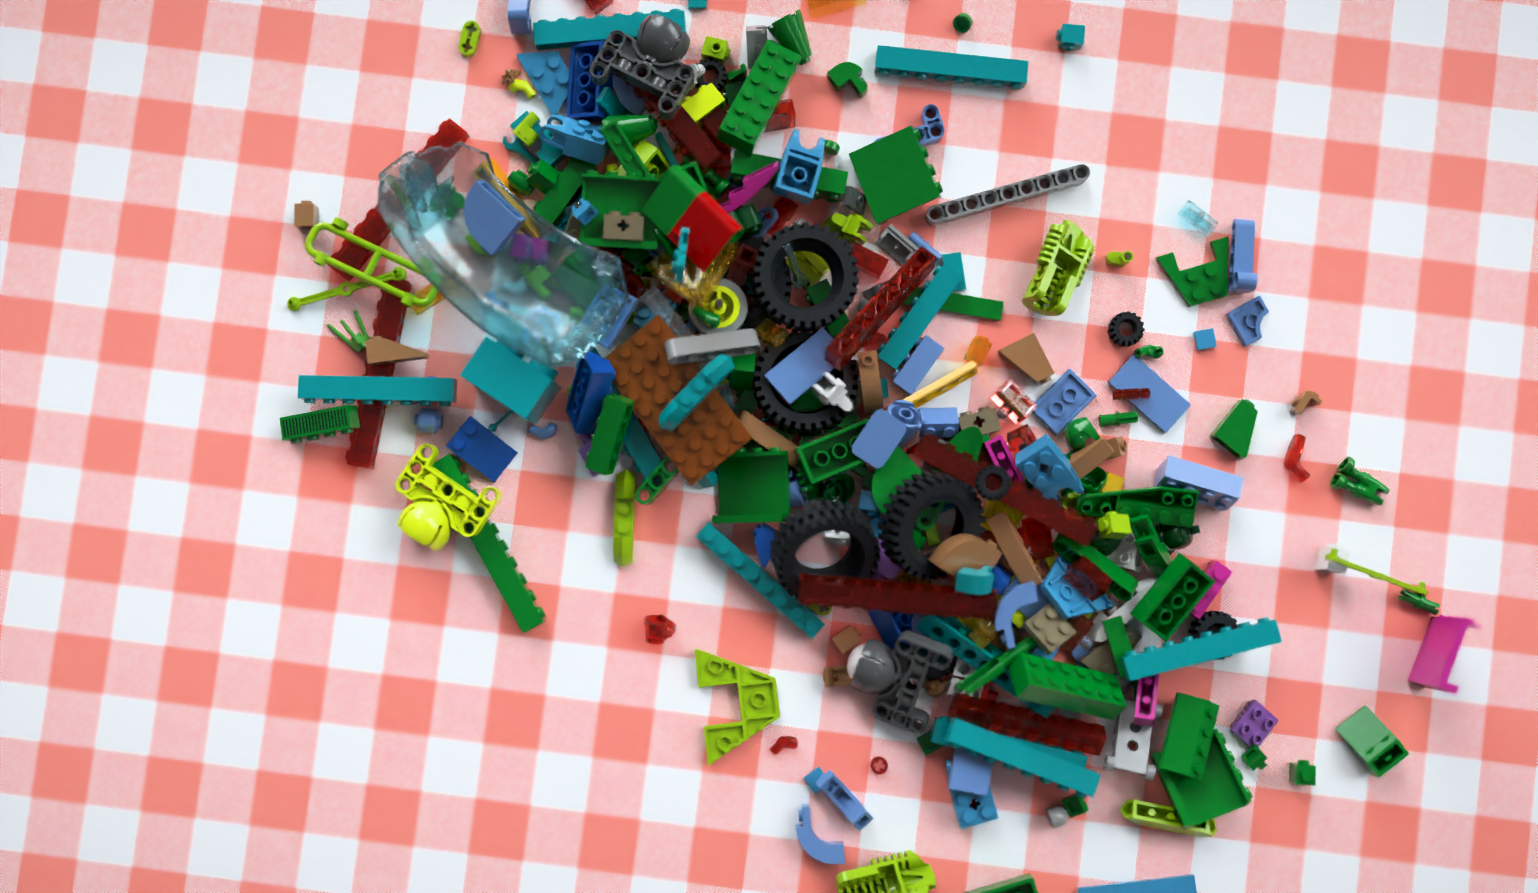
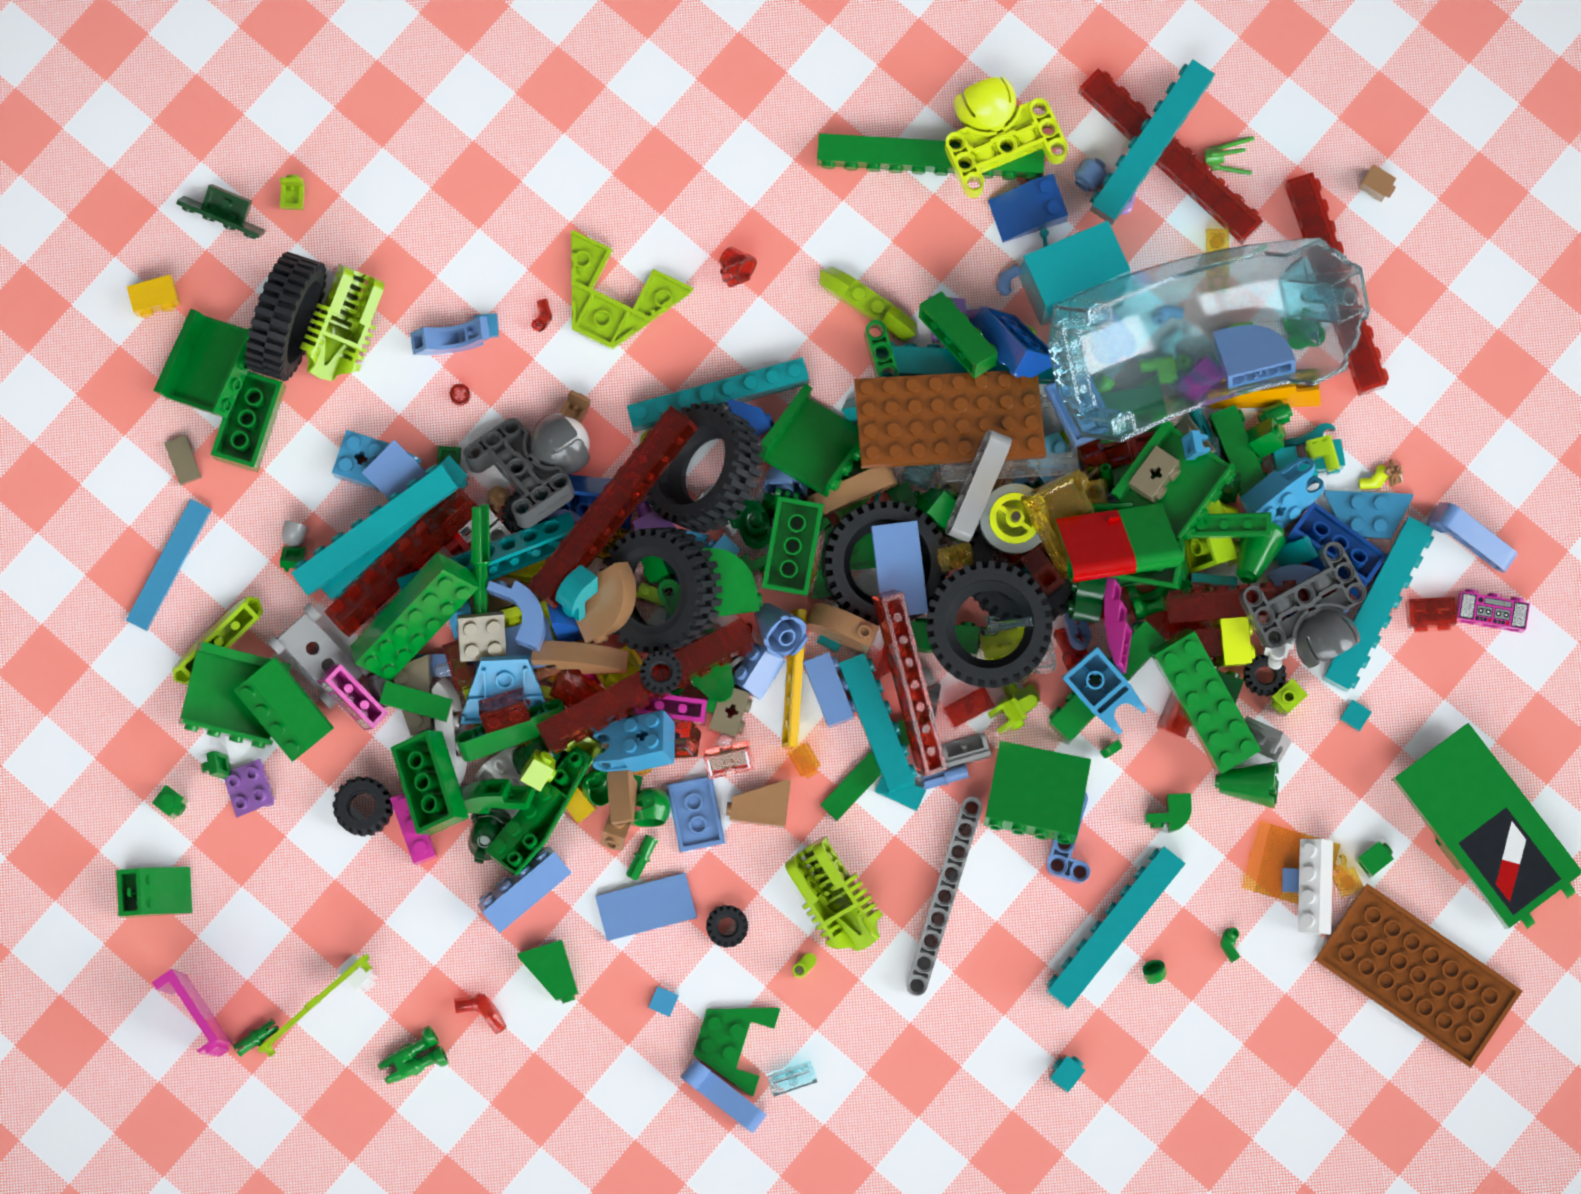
camera: 125 degrees right, 5 degrees down
(295, 303) = (1257, 232): lime piece -> none
(319, 423) = (1155, 68): green brick -> none
(339, 228) = (1341, 204): lime bar -> none
(385, 351) = (1184, 175): medium nougat slope -> none
(465, 37) = (1464, 454): lime beam -> none
(680, 256) = (1084, 503): teal wing -> none
(695, 392) = (942, 438): teal brick -> none
(708, 317) = (1009, 498): green arm -> none
(738, 75) = (1246, 701): green tile -> none
(824, 851) = (428, 280): medium blue arch -> none
(834, 393) = (853, 575): white hinge -> none
(847, 638) = (603, 442): medium nougat brick -> none
(854, 200) = (1038, 733): dark grey plate -> none
(879, 438) = (779, 591): medium blue piece -> none
(983, 633) = (520, 568): clear yellow bracket -> none
(1133, 393) = (658, 884): clear red axle -> none
(1149, 351) = (689, 936): green arm -> none
(1200, 649) = (360, 774): teal brick -> none
(1247, 320) = (654, 1058): medium blue tile -> none
(1300, 402) = (535, 1052): medium nougat bracket -> none

